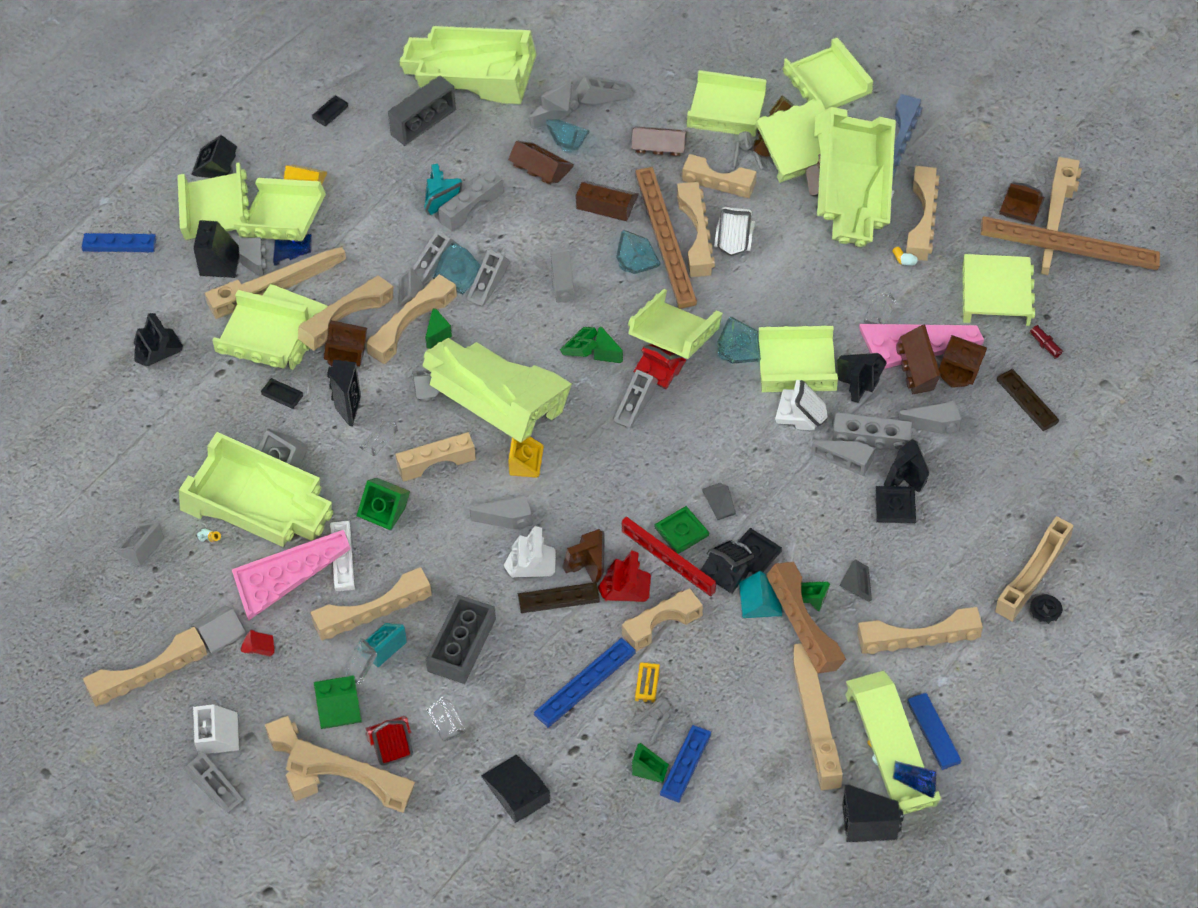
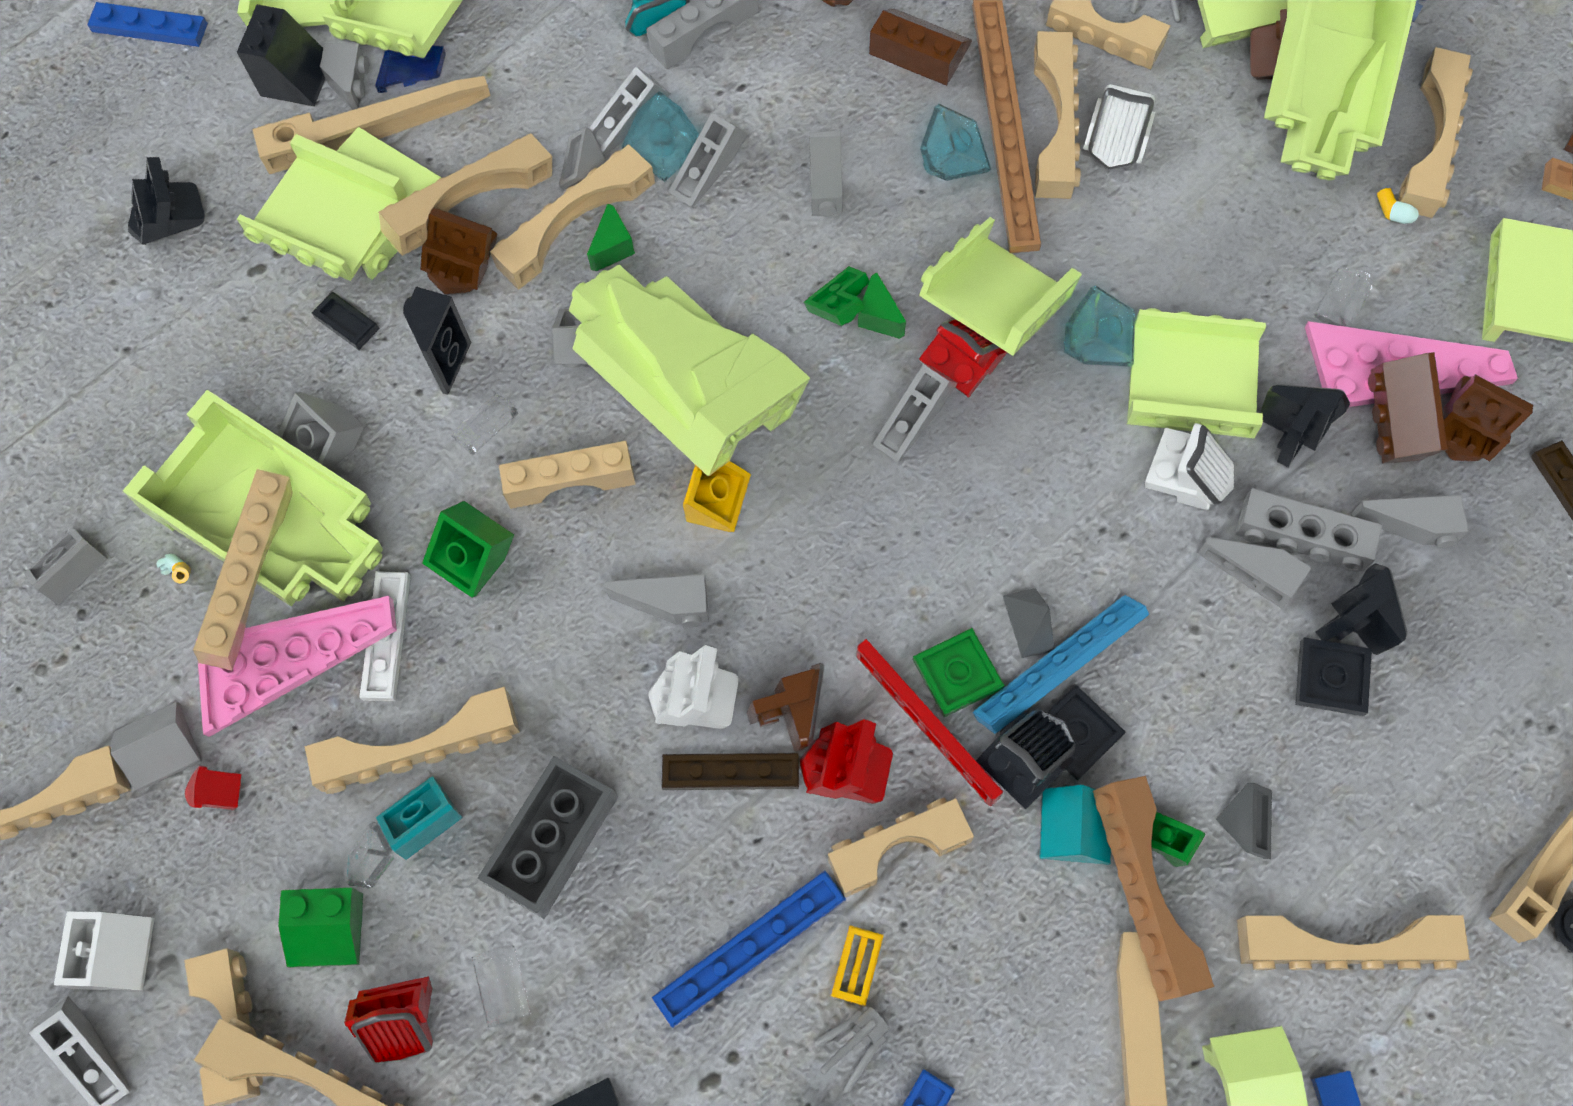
camera: 10 degrees right, 15 degrees up
(256, 525) = (231, 600): none -> tan arch
(740, 516) = (1060, 663): none -> dark azure tile

